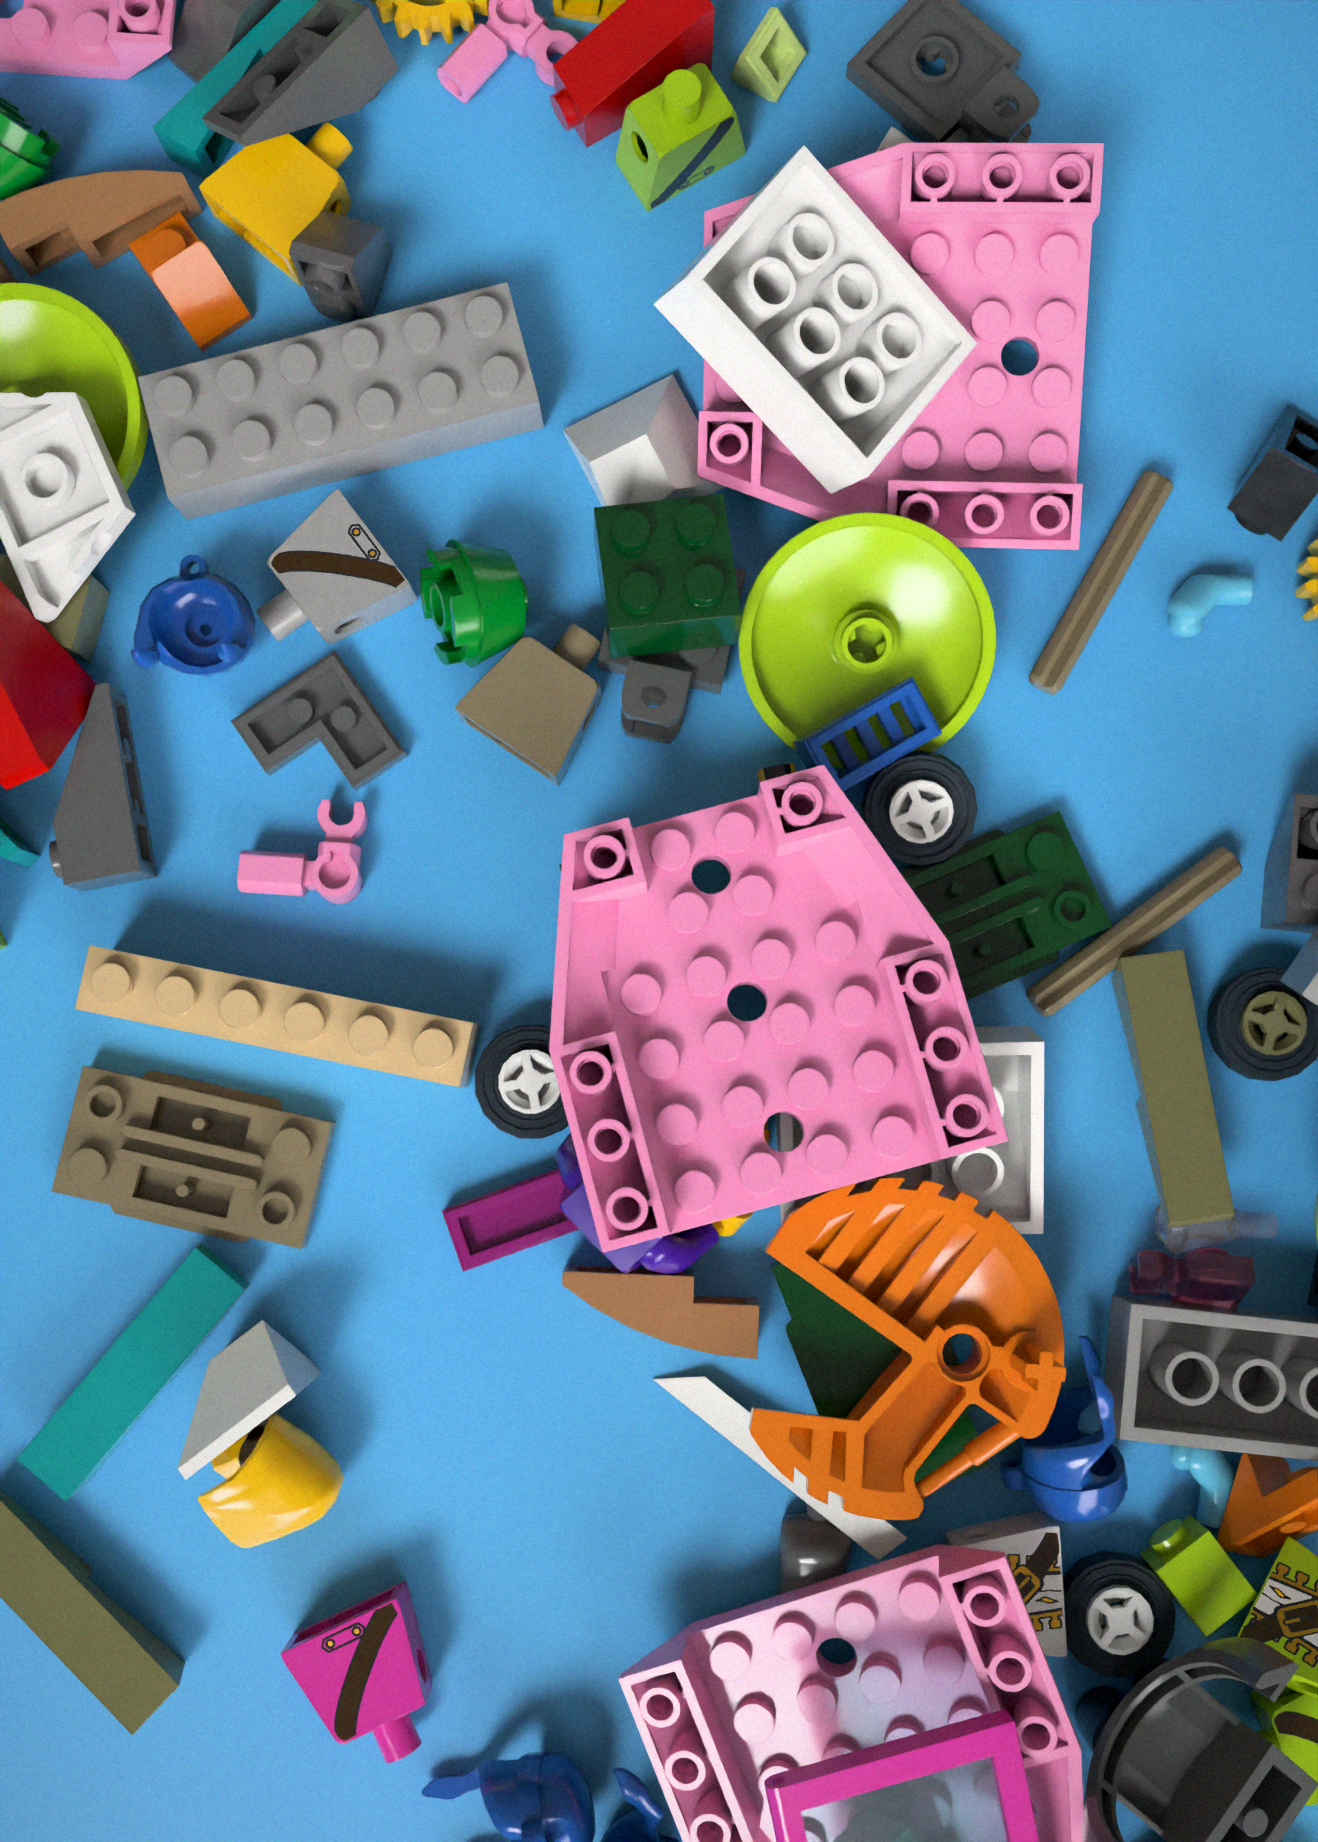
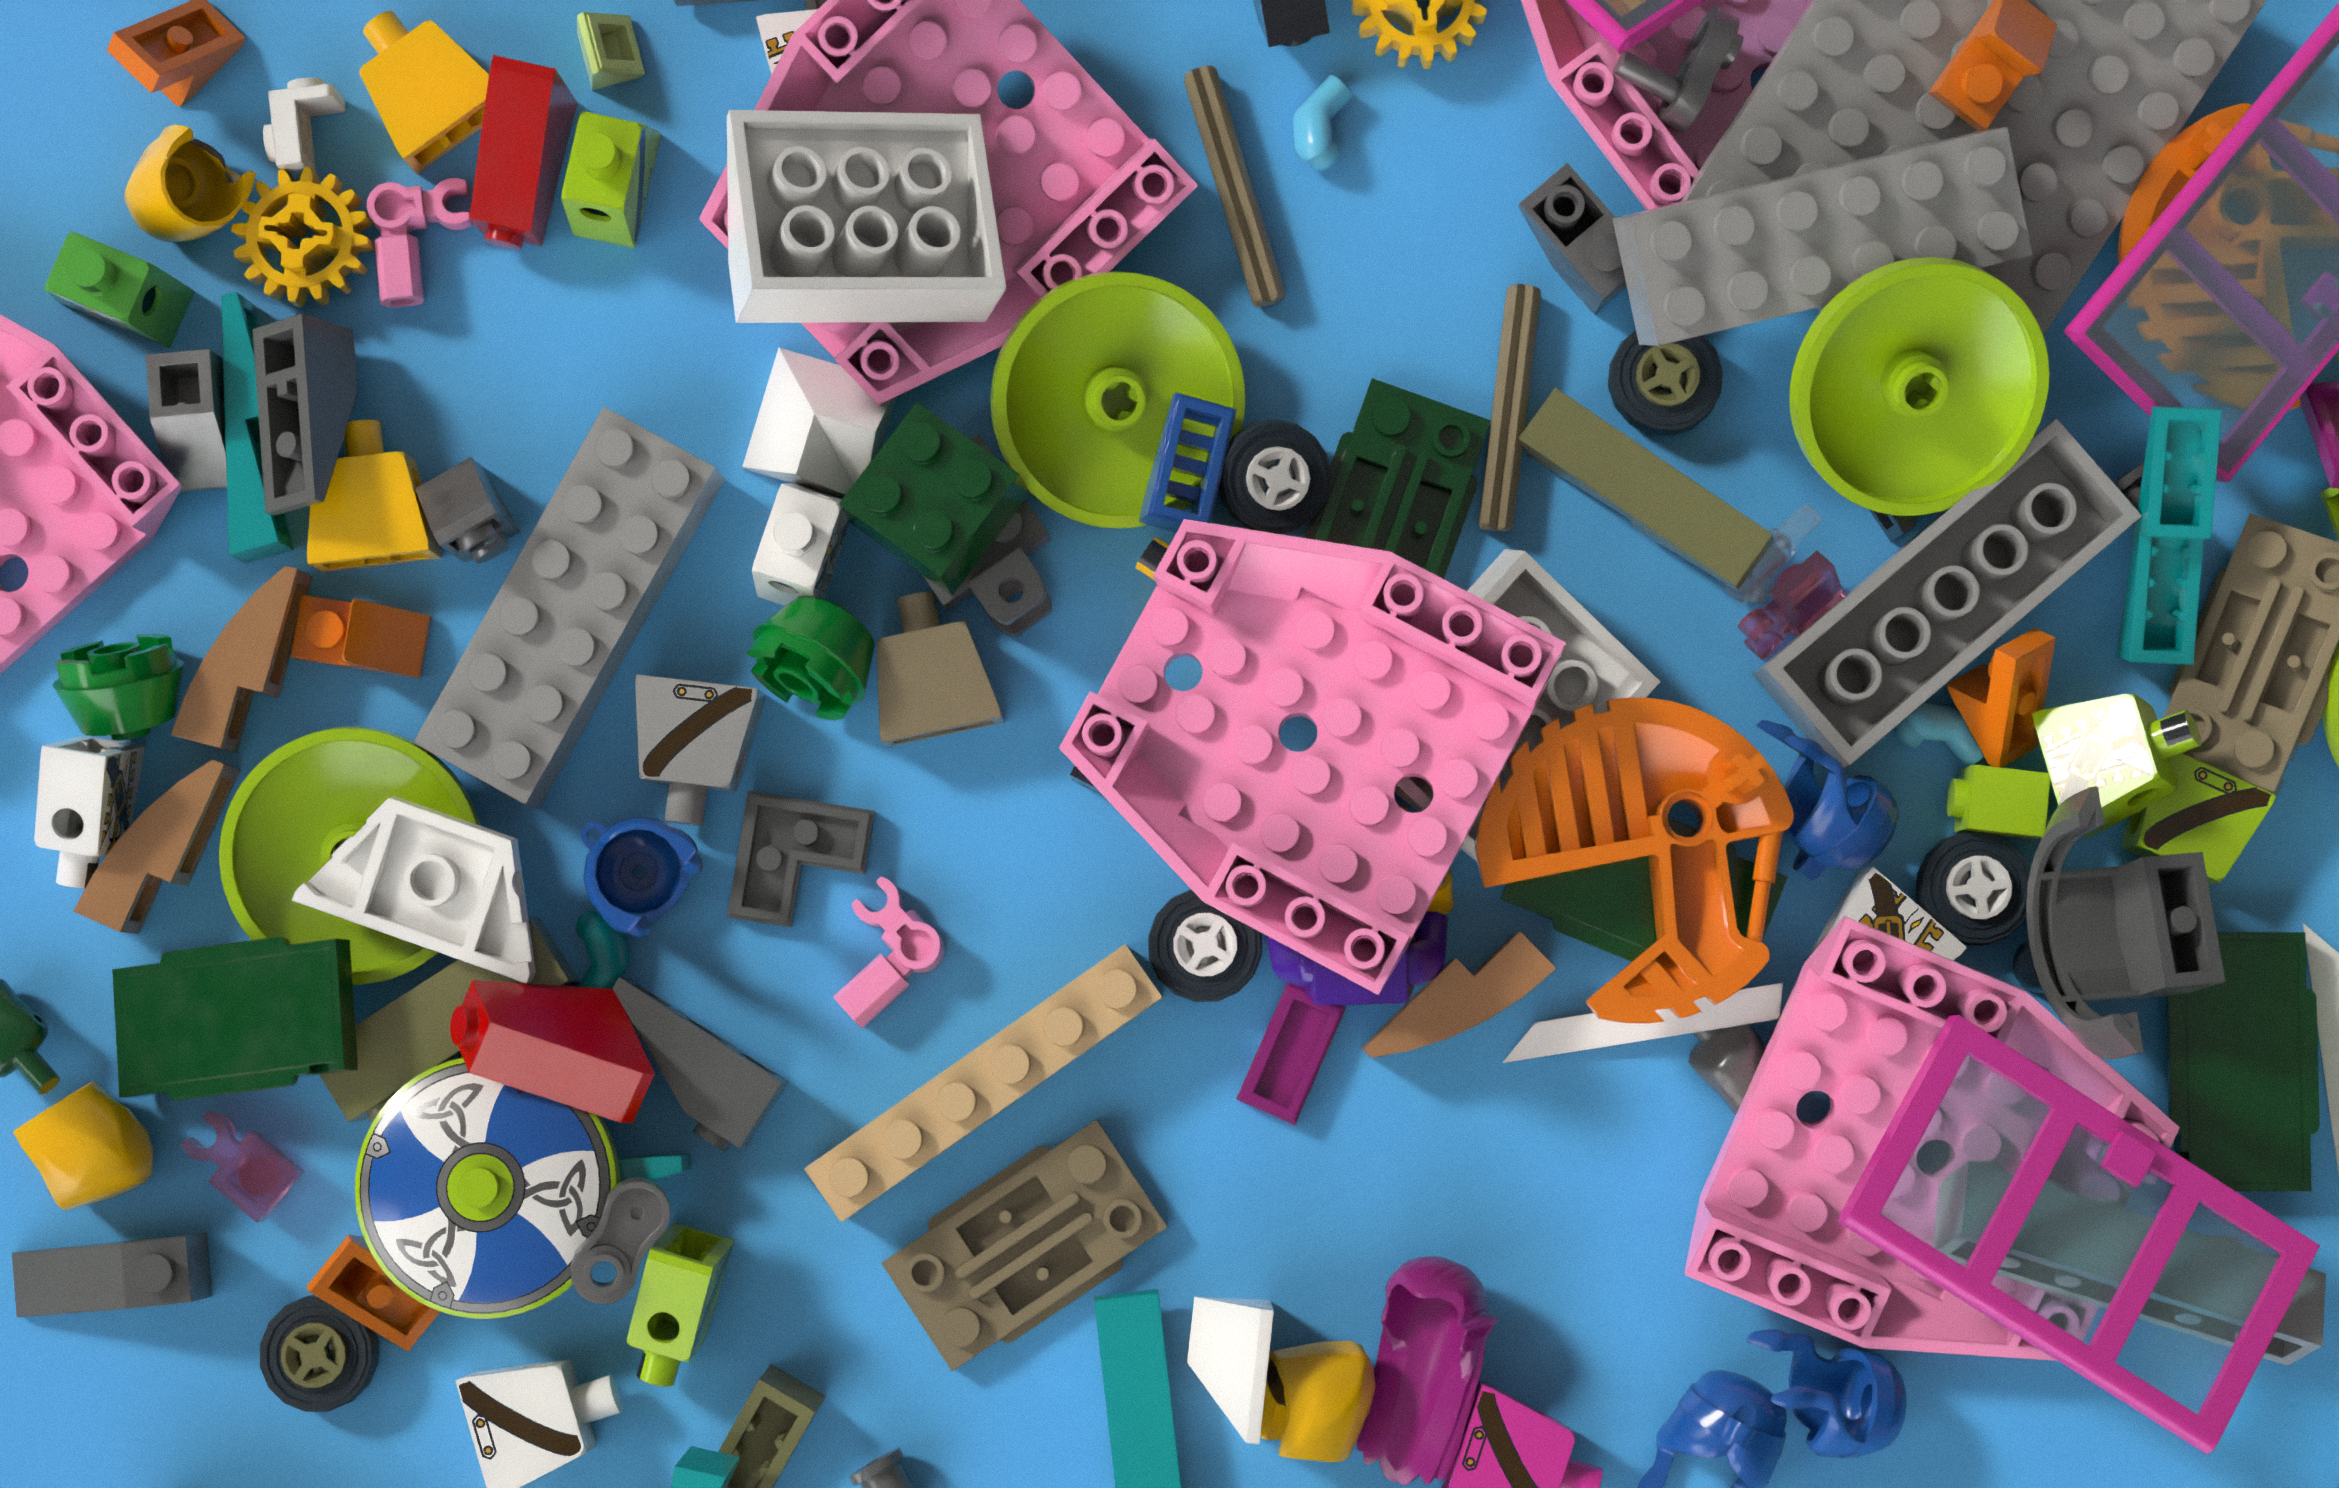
camera: 45 degrees left, 0 degrees up
(118, 667) = (606, 950): none -> teal arm
(371, 1542) = (1426, 1369): none -> magenta hair
(542, 515) = (799, 544): none -> white torso

